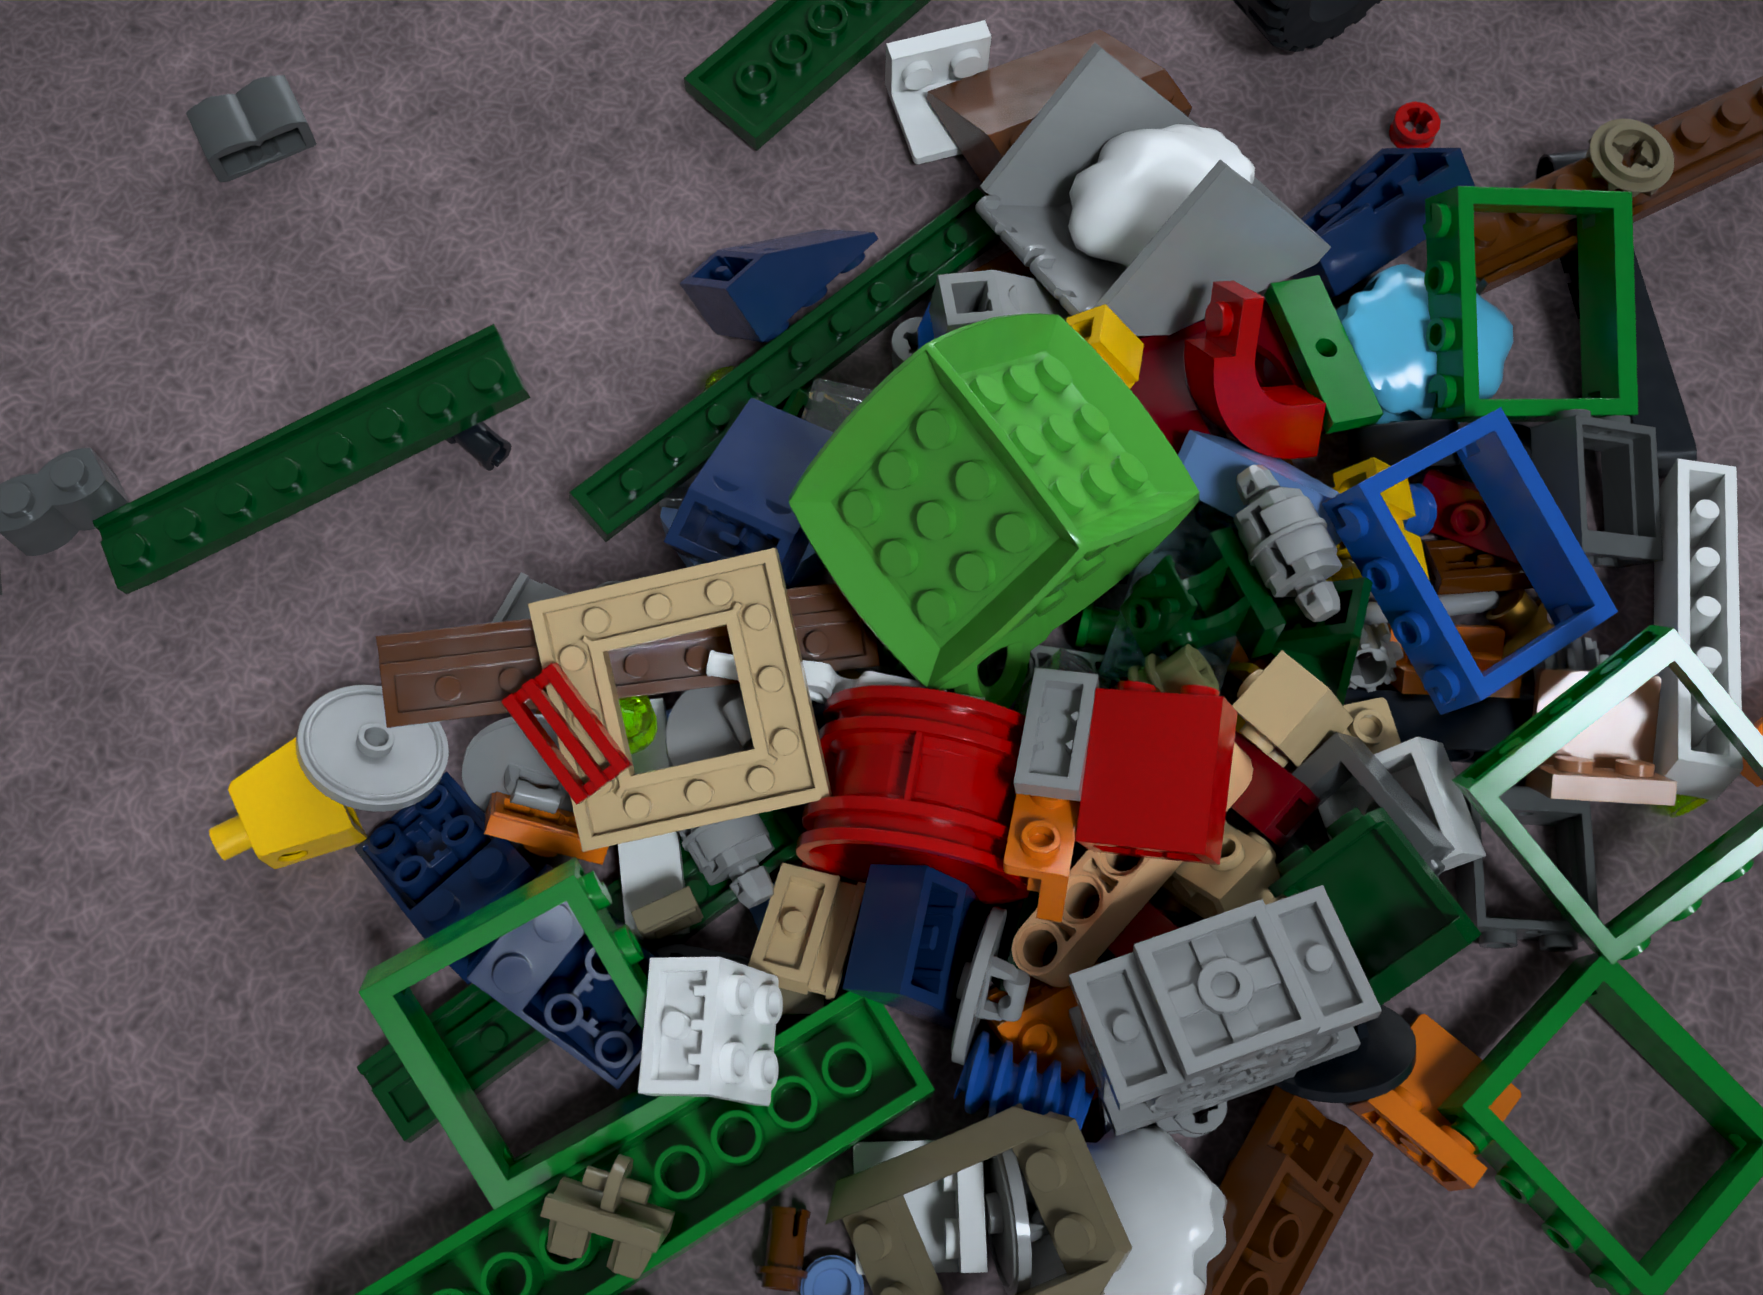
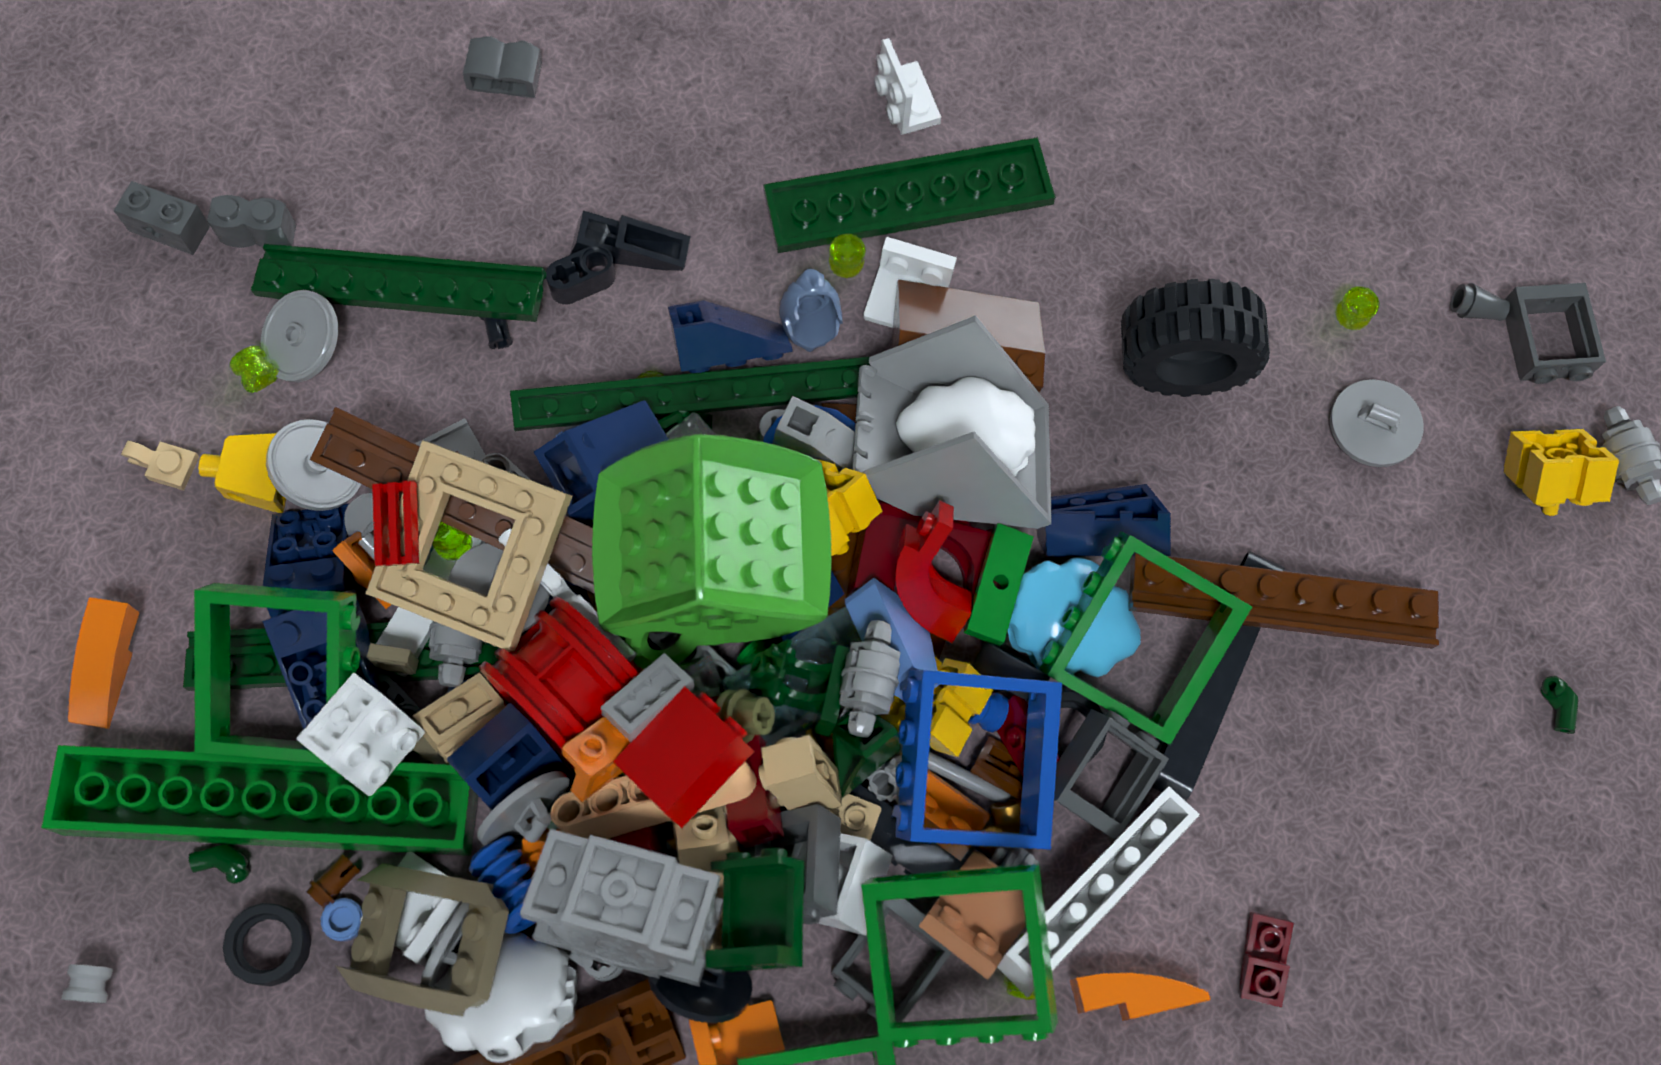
camera: 30 degrees right, 0 degrees up
(164, 877) = (166, 465): none -> tan plate
(196, 682) = (253, 368): none -> clear neon green wheel
(229, 603) = (300, 335): none -> light grey shield
(265, 1185) = (100, 661): none -> orange slope
(537, 323) = (582, 262): none -> black beam
(568, 241) = (633, 241): none -> black slope
(610, 1207) = (247, 791): dark tan hips -> none
(847, 90) = (848, 247): none -> clear neon green wheel
(855, 184) = (810, 311): none -> sand blue hair
(1420, 114) = (1196, 477): red bush -> none
(1652, 156) = (1284, 569): dark tan gear -> none

